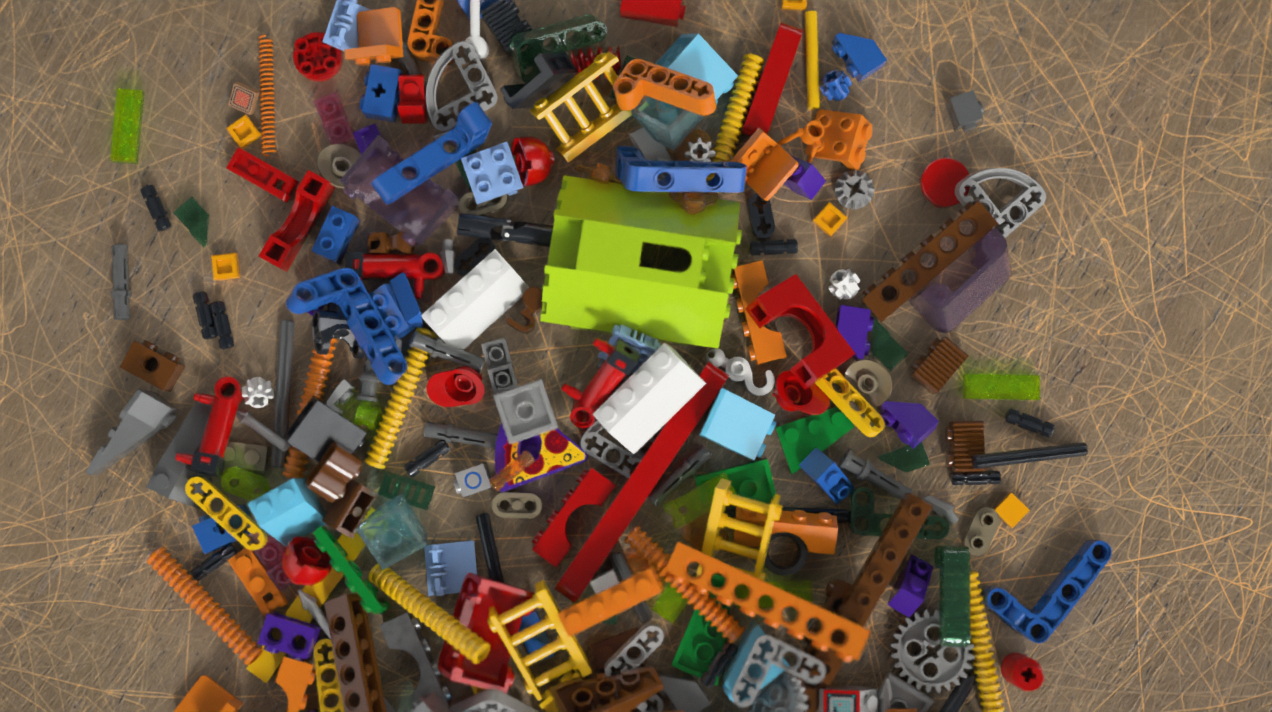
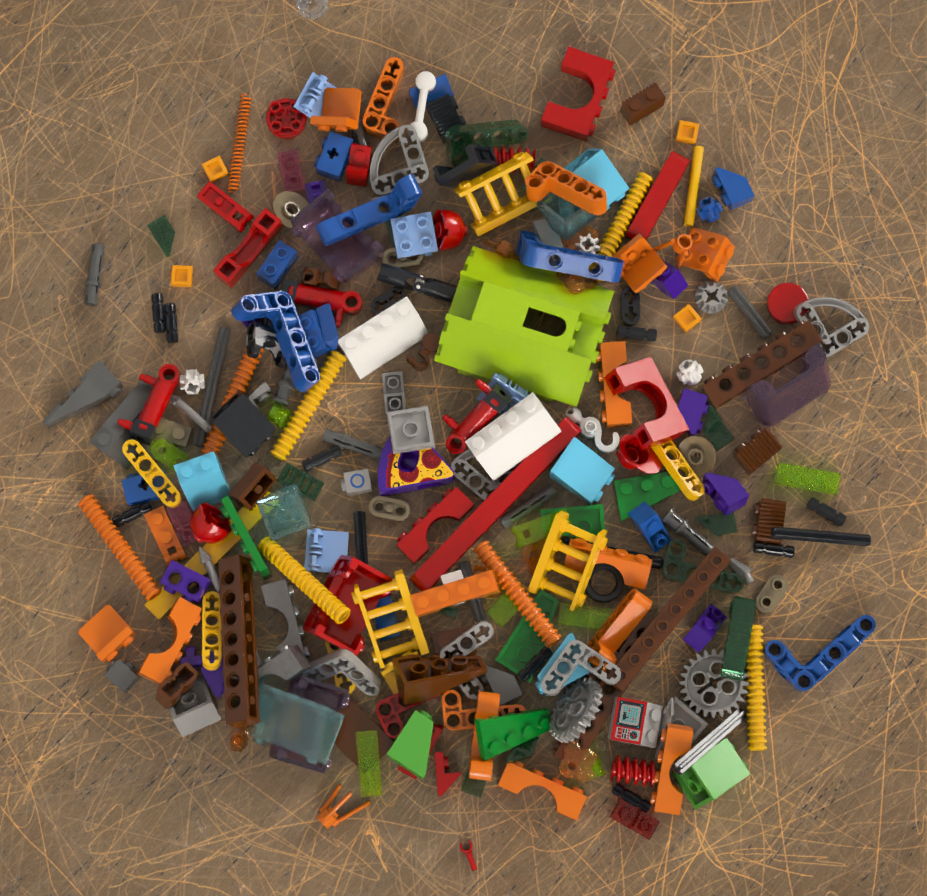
camera: 10 degrees right, 5 degrees down
(127, 126) = (121, 149): clear neon green plate -> none
(138, 363) = (118, 355): reddish brown brick -> none
(155, 208) = (133, 219): black axle -> none
(243, 98) = (220, 142): medium nougat tile -> none
(334, 472) = (245, 454): reddish brown brick -> none
(445, 351) = (333, 361): dark grey pin -> none
(448, 256) = (366, 296): light grey bar -> none
(456, 387) = (355, 404): red piece -> none
(511, 470) = (391, 475): clear orange axle -> none
(819, 589) = (619, 626): none -> orange beam
(855, 635) = (521, 567): orange brick -> none
(902, 200) = (749, 312): none -> dark grey axle
(965, 111) = (813, 247): dark grey brick -> none
(1011, 510) = (799, 580): light orange tile -> none
(1022, 671) = (777, 714): red piece -> none

